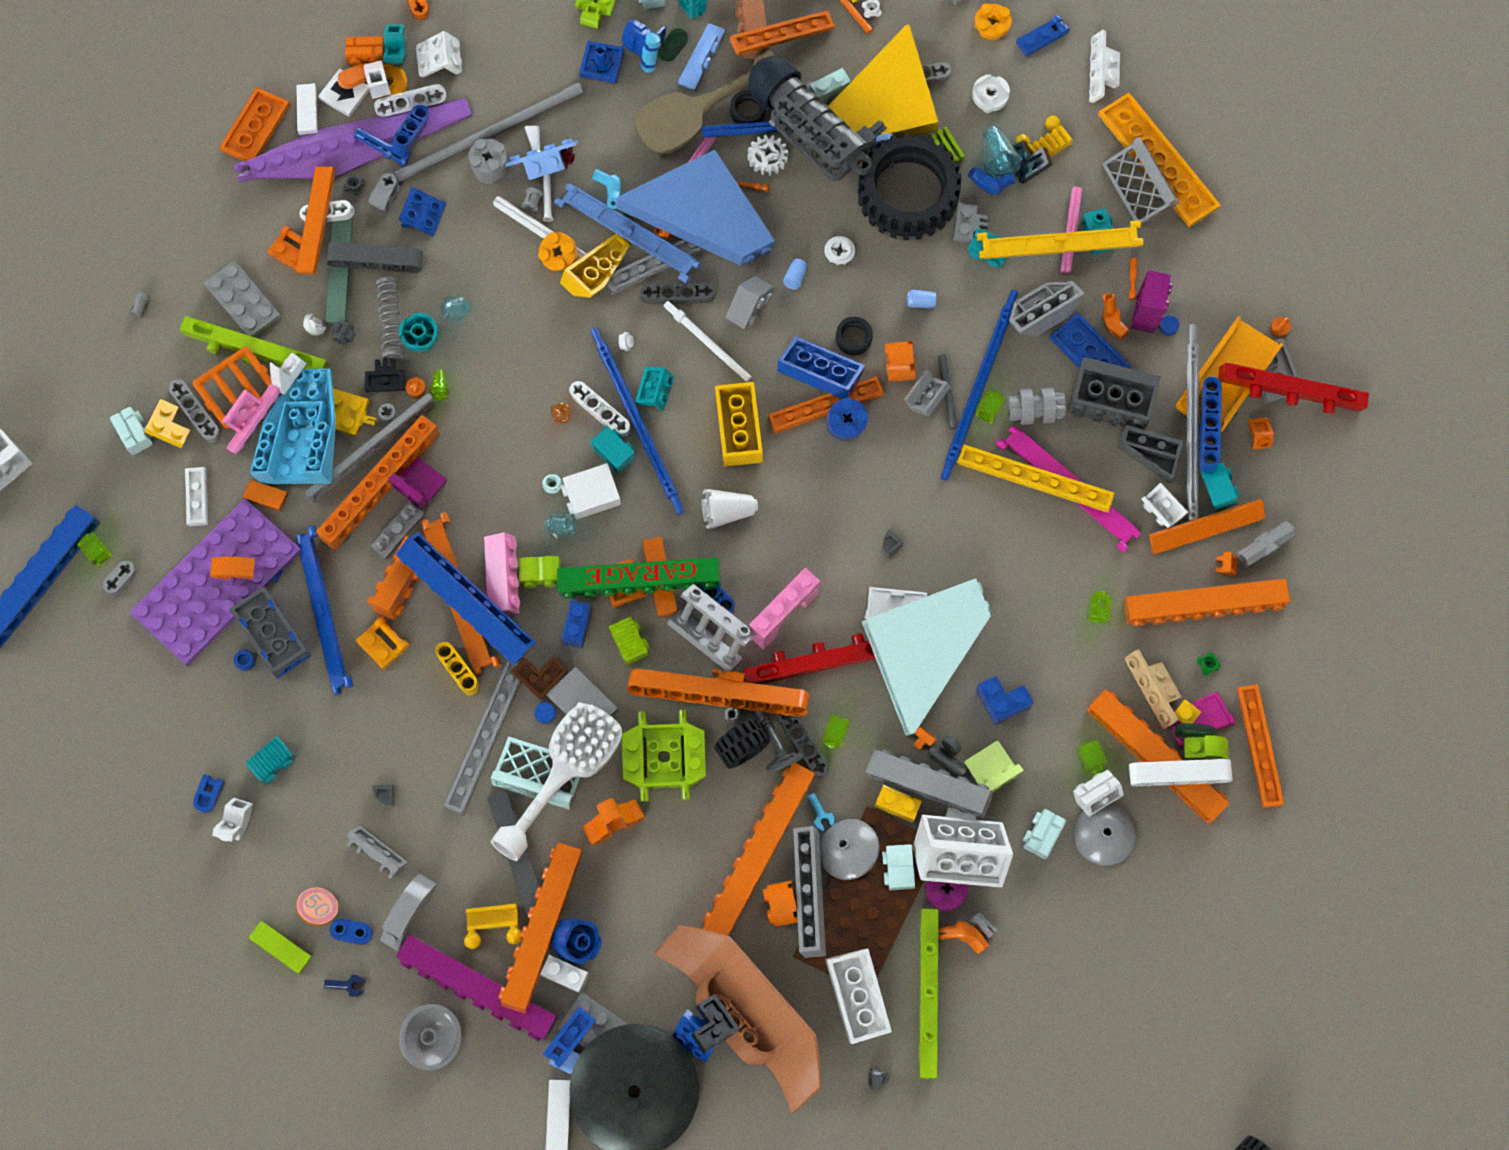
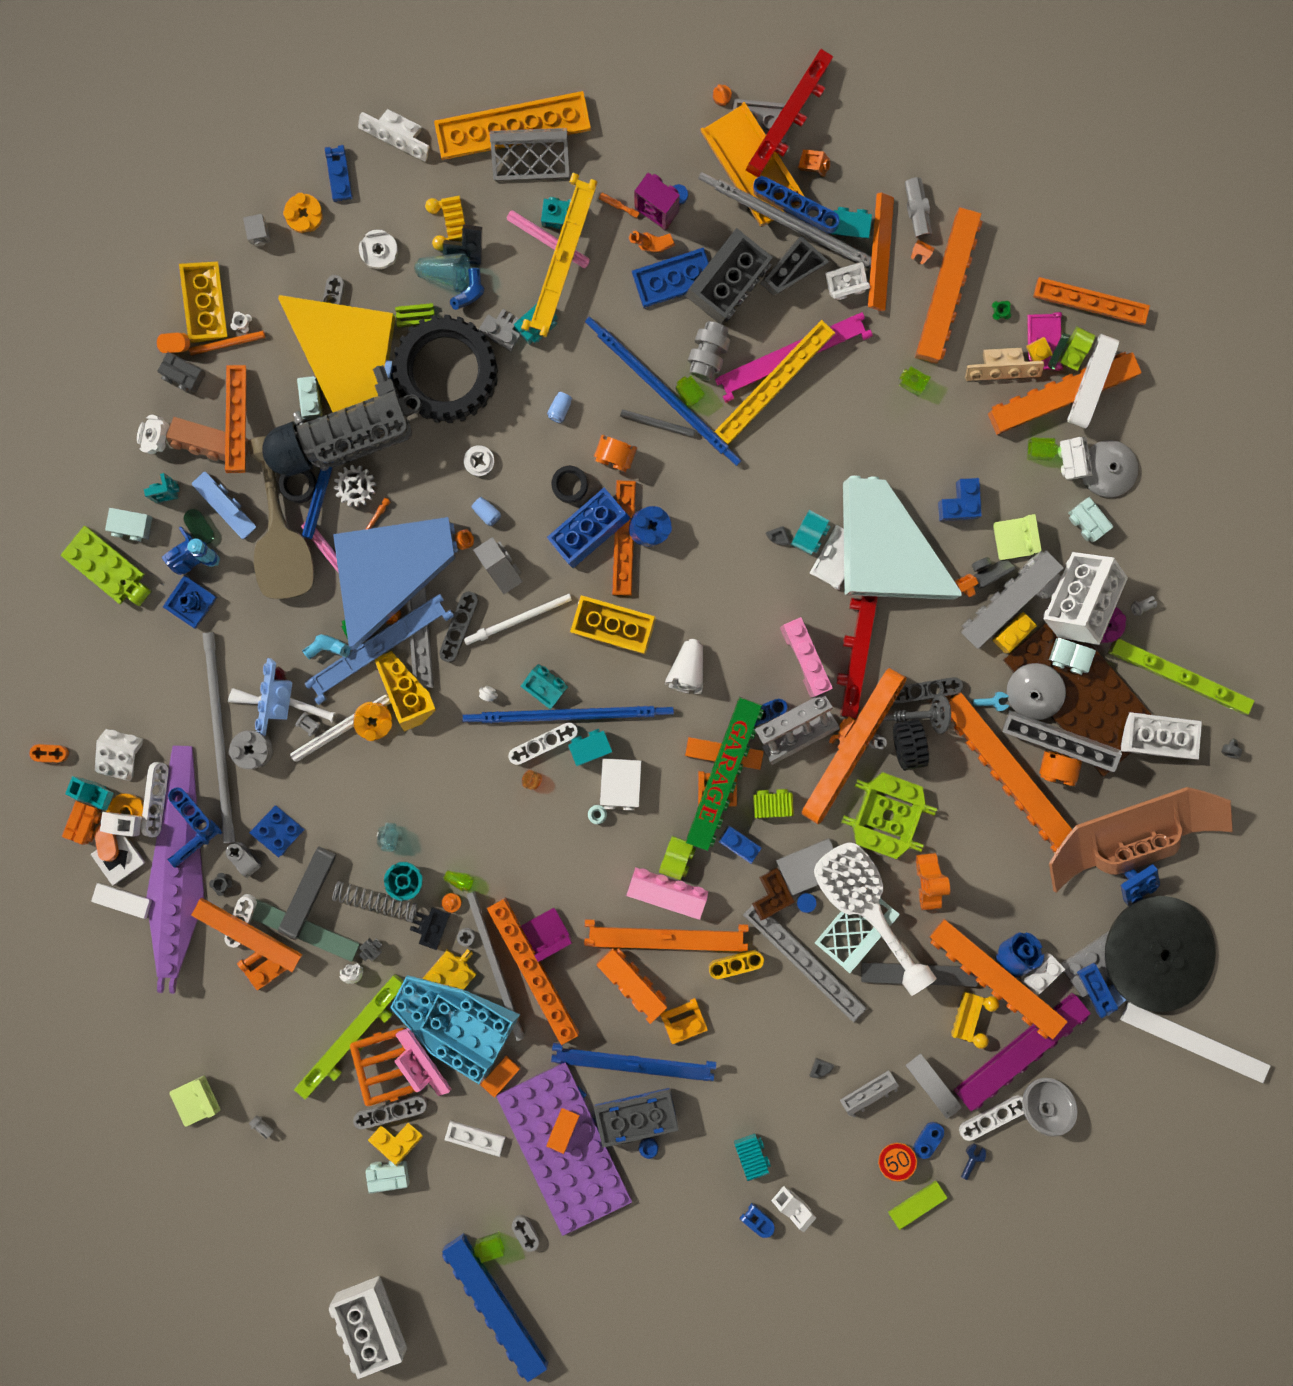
camera: 70 degrees left, 15 degrees up
(144, 239) = (195, 1101): none -> yellowish green bracket
(242, 299) = (296, 1030): light grey plate -> none
(255, 125) = (119, 956): orange plate -> none
(286, 375) = (394, 1016): white slope -> none
(397, 530) = (583, 969): light grey plate -> none
(400, 985) = (995, 1120): none -> white beam
(465, 598) = (680, 935): blue brick -> none
(560, 526) = (642, 823): clear light blue head -> none
(718, 1027) = (1147, 863): black plate -> none
(761, 265) = (464, 539): none -> orange tile
(835, 731) = (929, 658): clear neon green brick -> none
(907, 569) = (810, 532): none -> teal brick
(926, 394) = (654, 443): light grey bracket -> none
(966, 933) = (1146, 624): orange arm -> none
(1045, 307) = (616, 299): light grey wedge -> none

